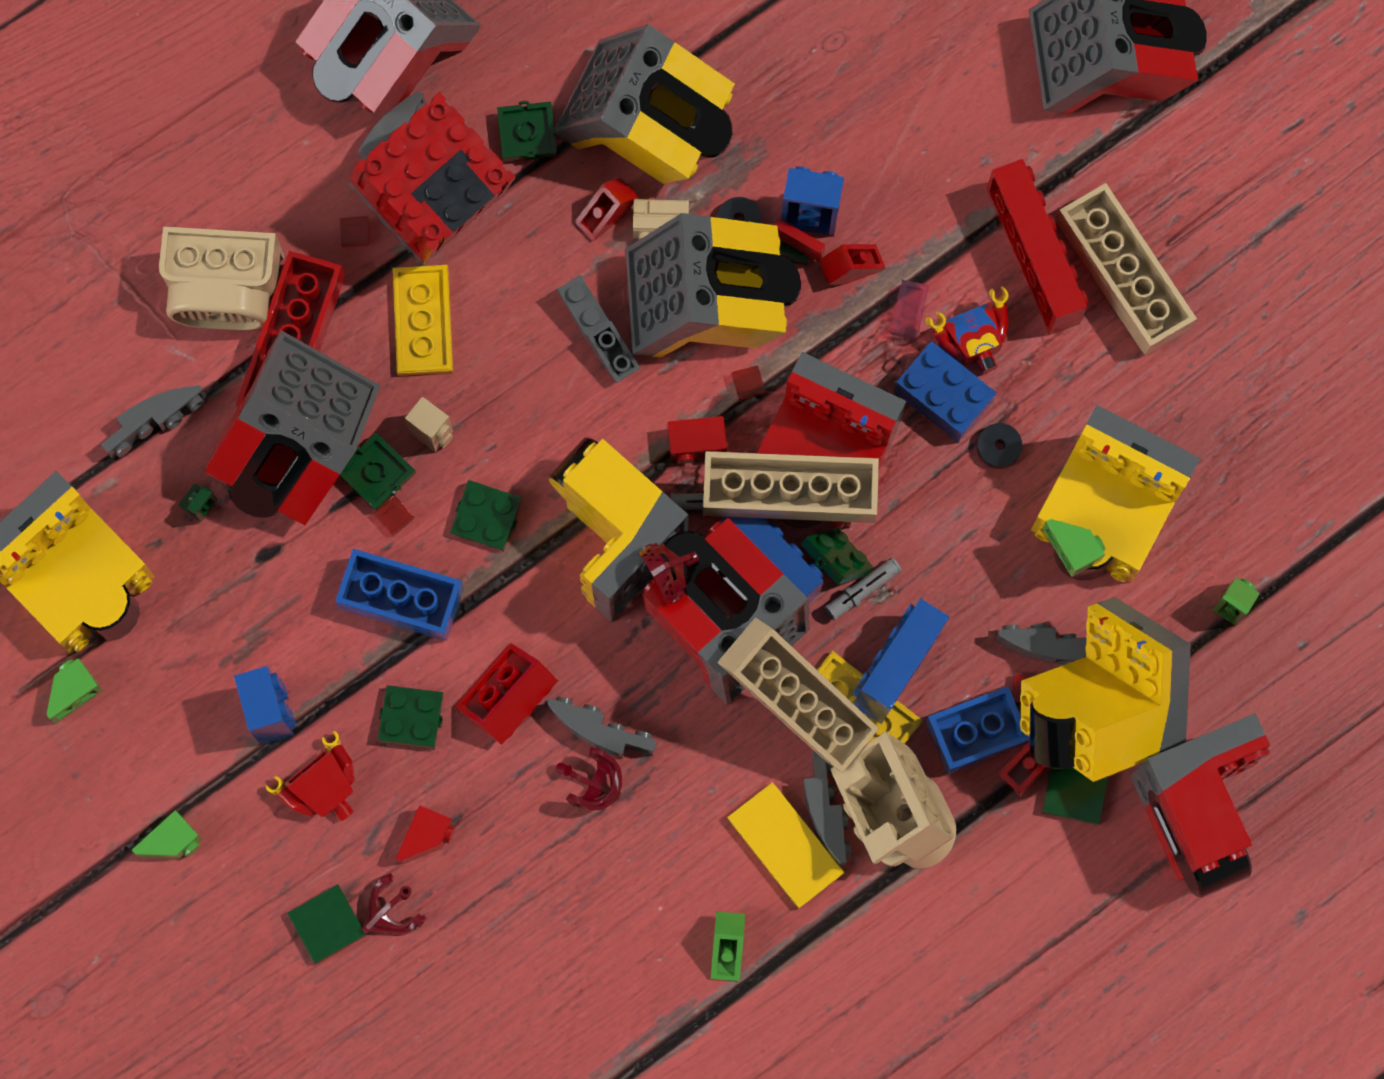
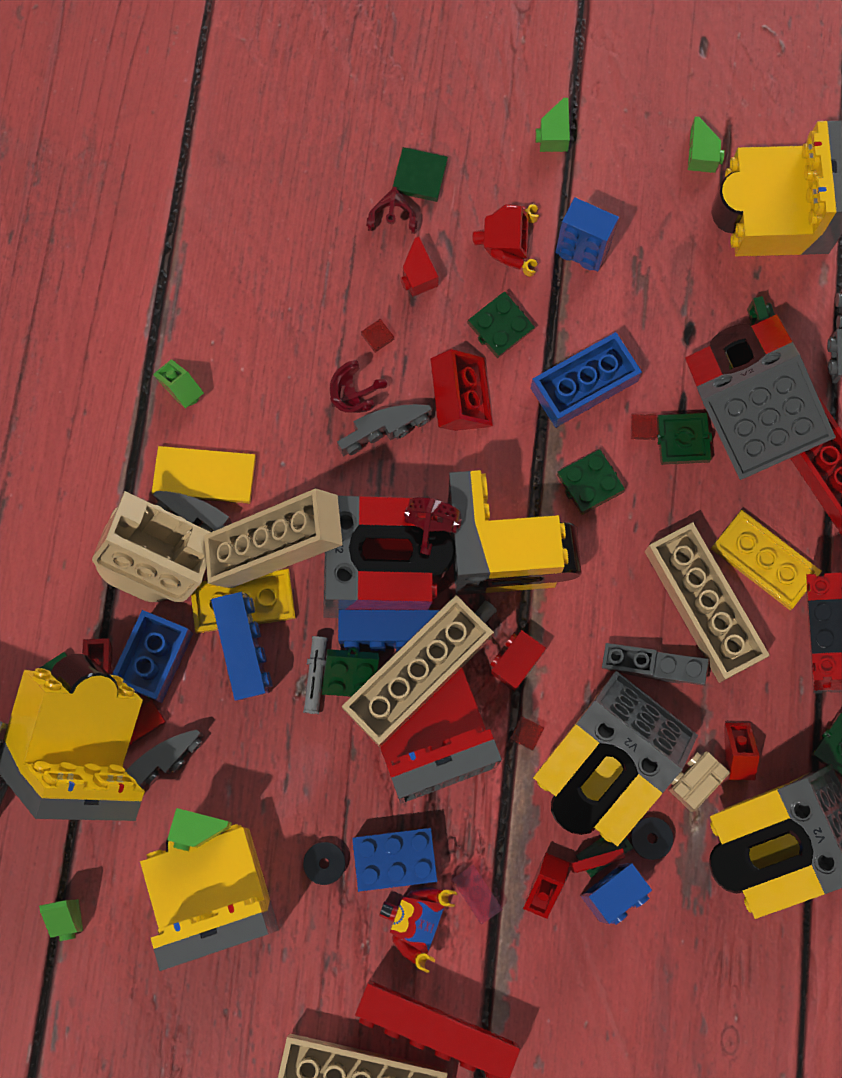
camera: 135 degrees right, 0 degrees up
(429, 425) = (684, 493): tan brick -> none
(508, 332) = (706, 602): none -> tan brick
(519, 816) = (377, 335): none -> clear red tile

